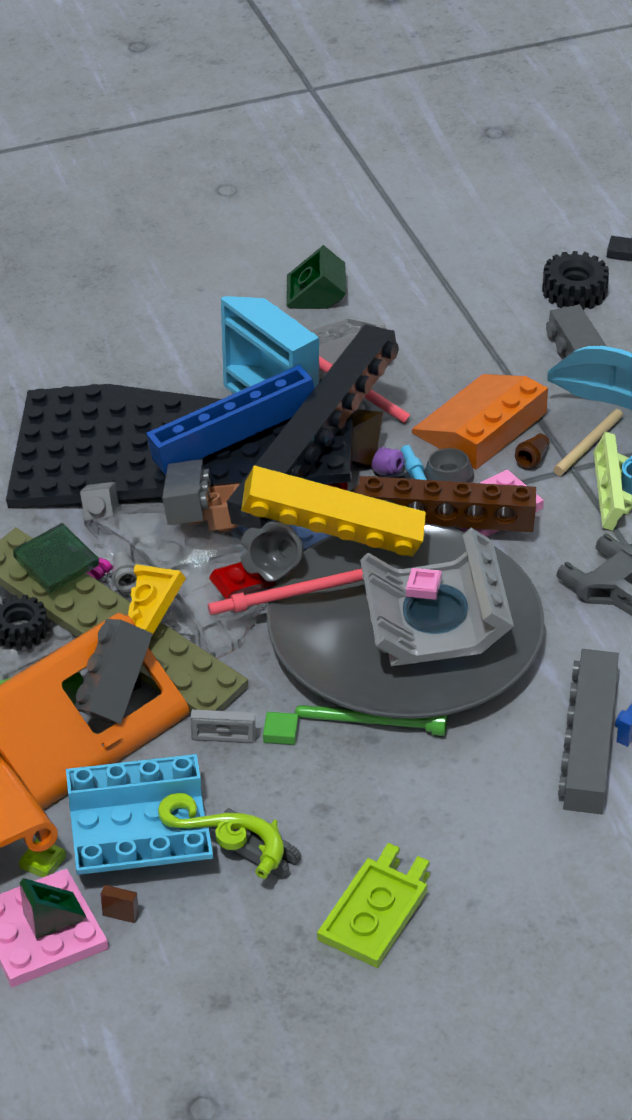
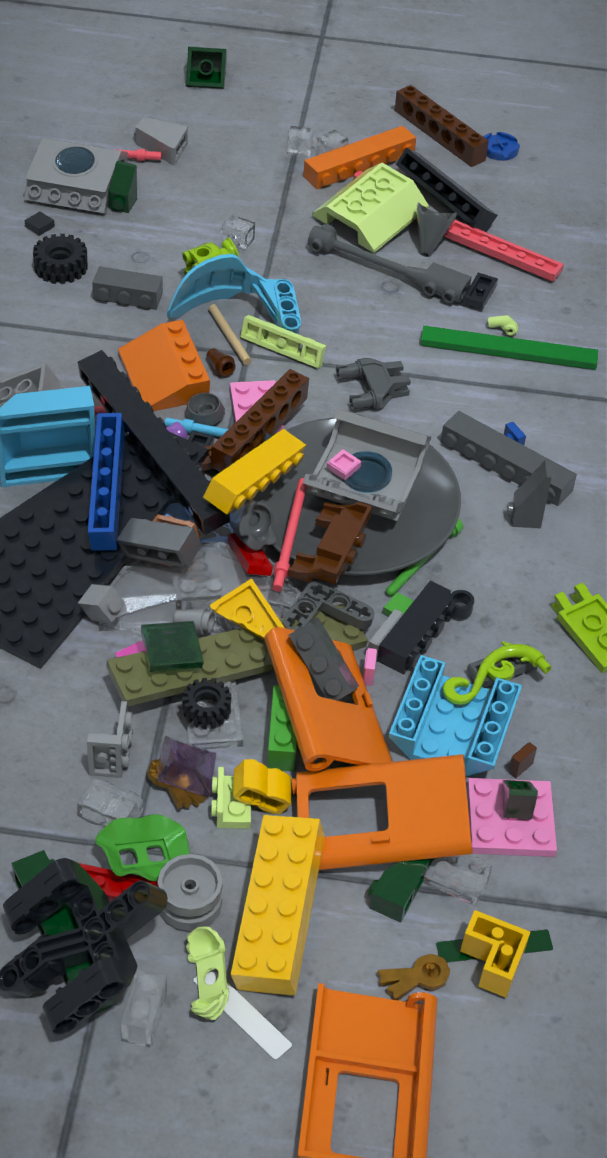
camera: 65 degrees left, 5 degrees up
(168, 731) = (369, 667): none -> bright pink tile
(212, 649) = (319, 603): none -> dark grey beam
(262, 749) = (420, 623): none -> black hinge
(299, 622) = (338, 545): none -> reddish brown bracket
(520, 766) = (530, 499): none -> dark grey slope

